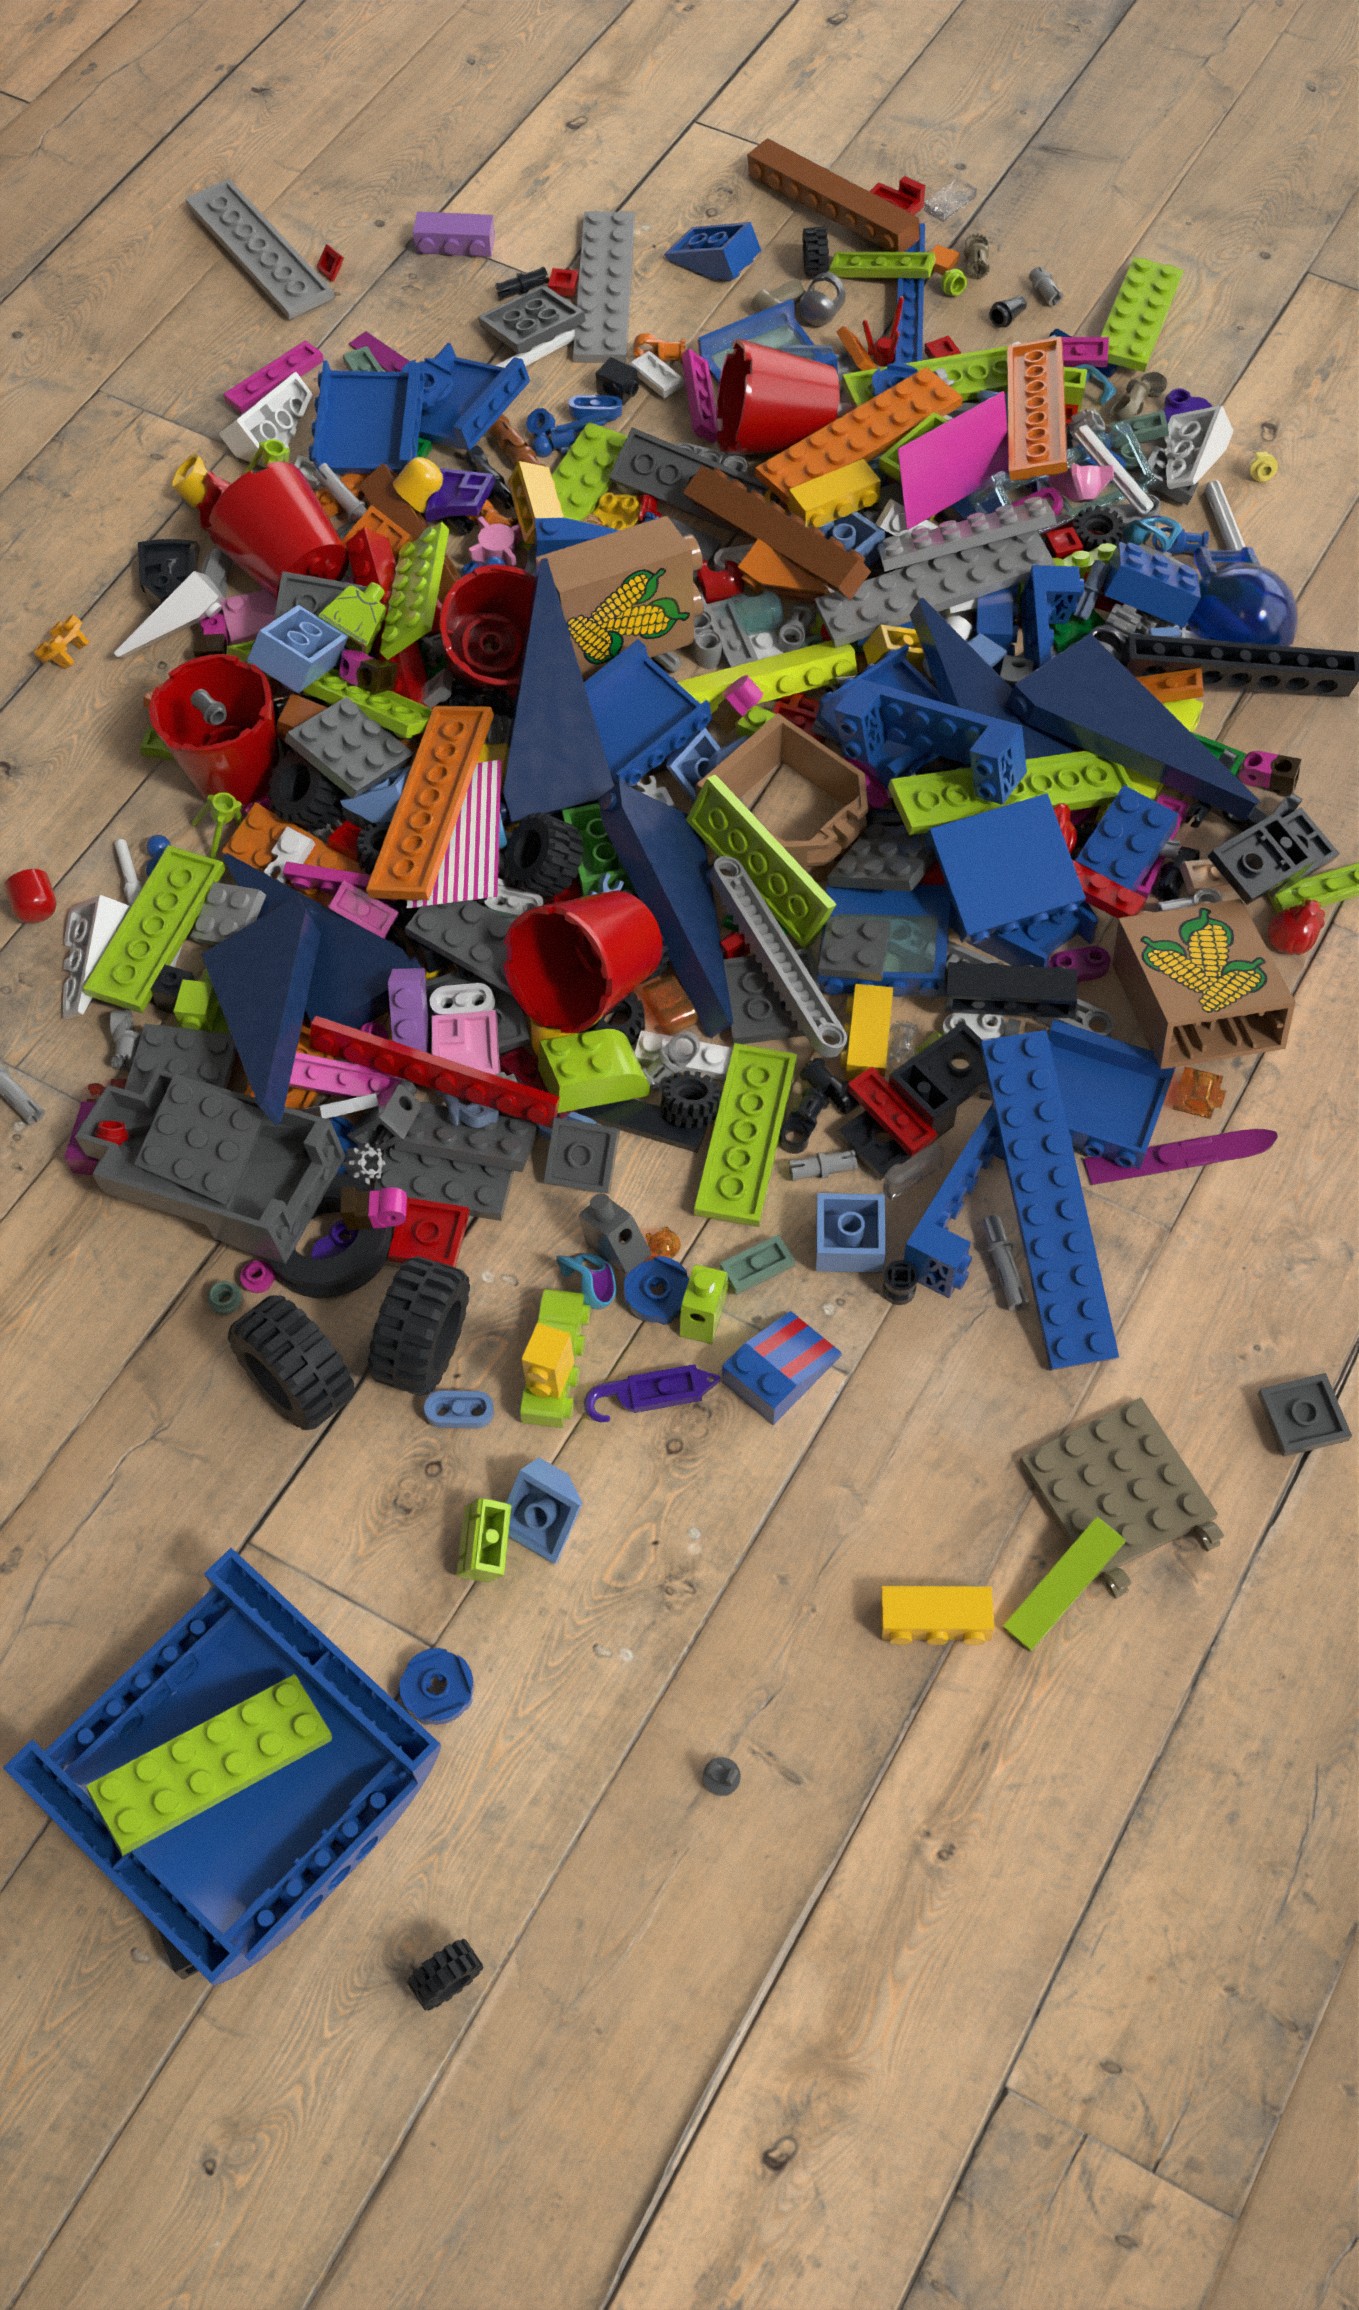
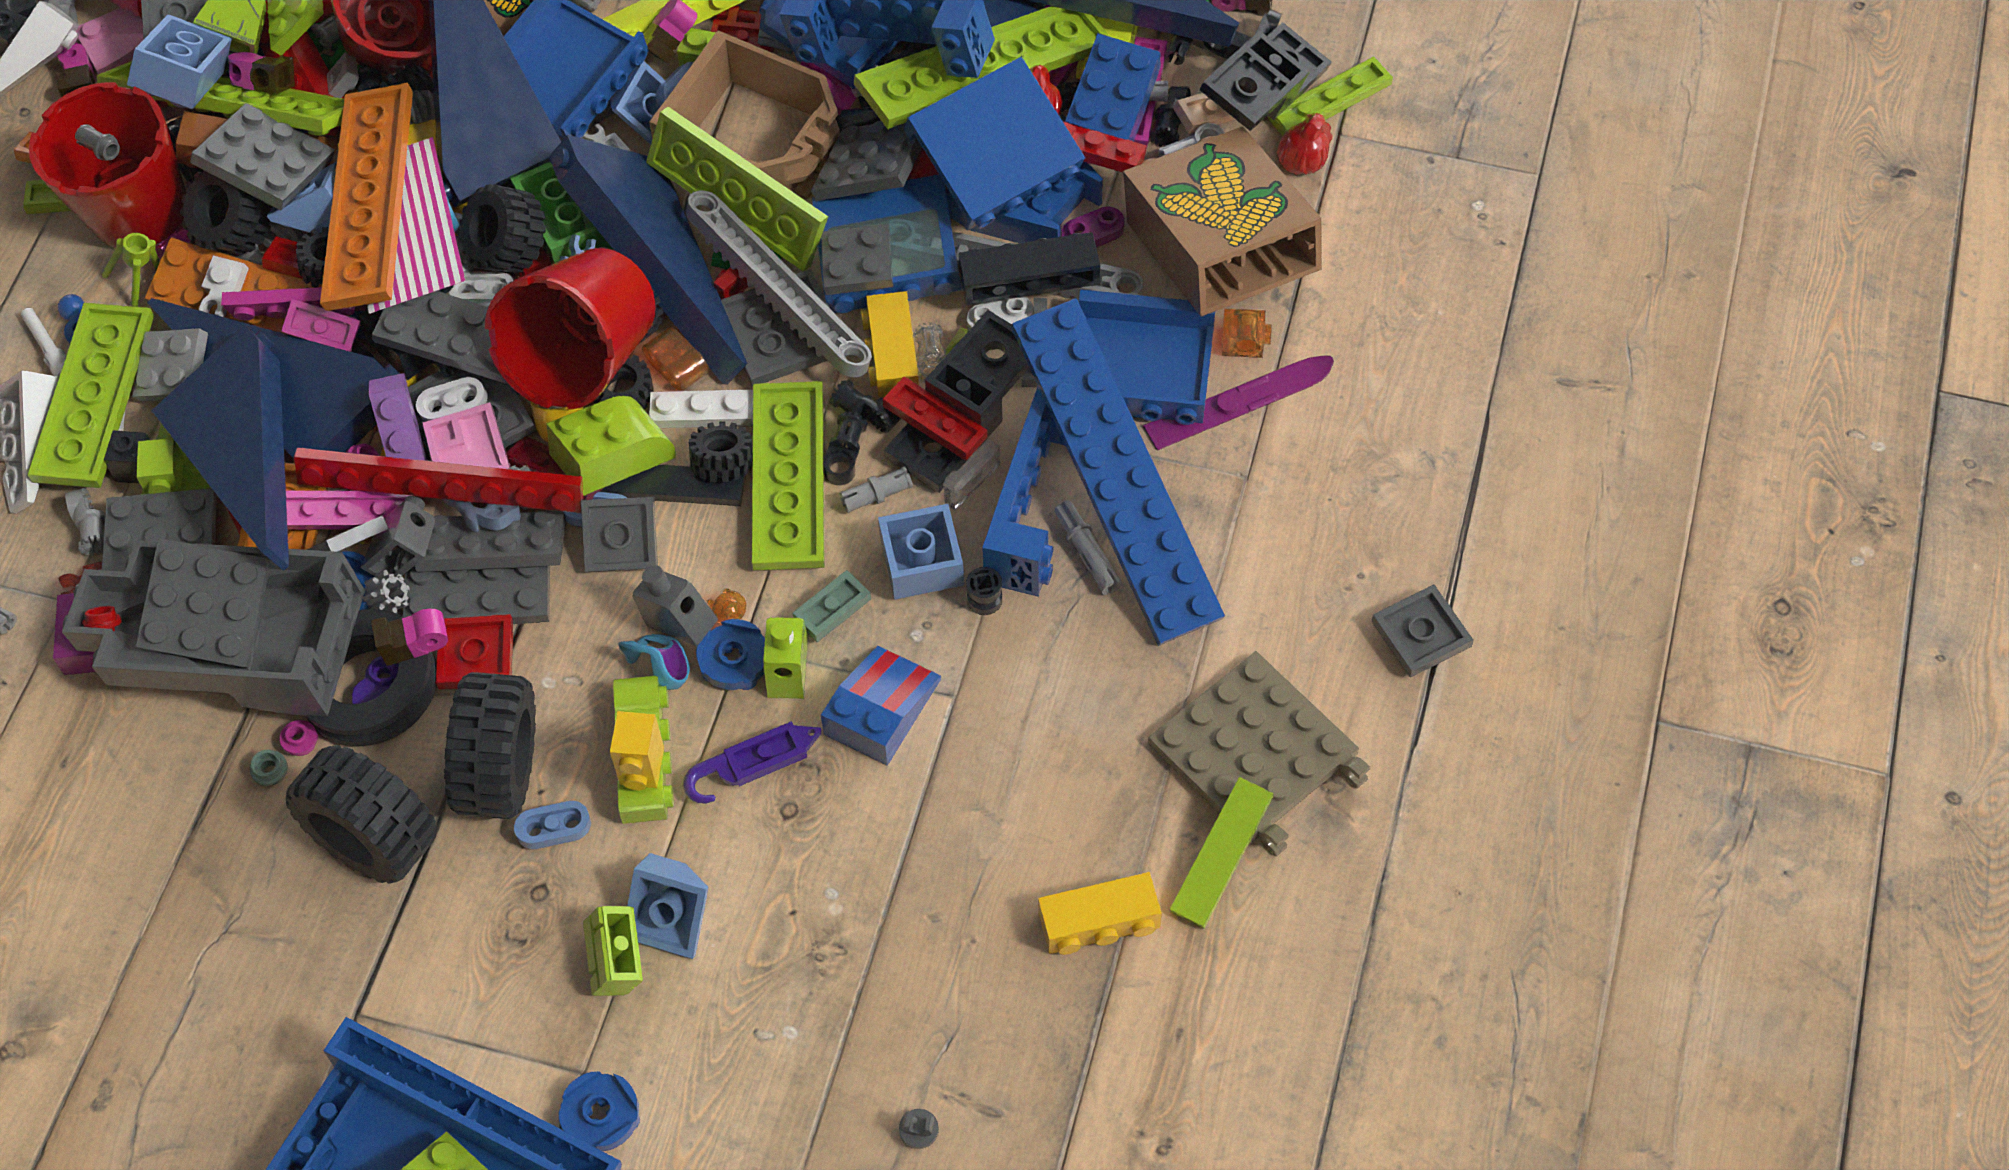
camera: 15 degrees left, 0 degrees up
(671, 1060) = (691, 415): light grey connector -> none

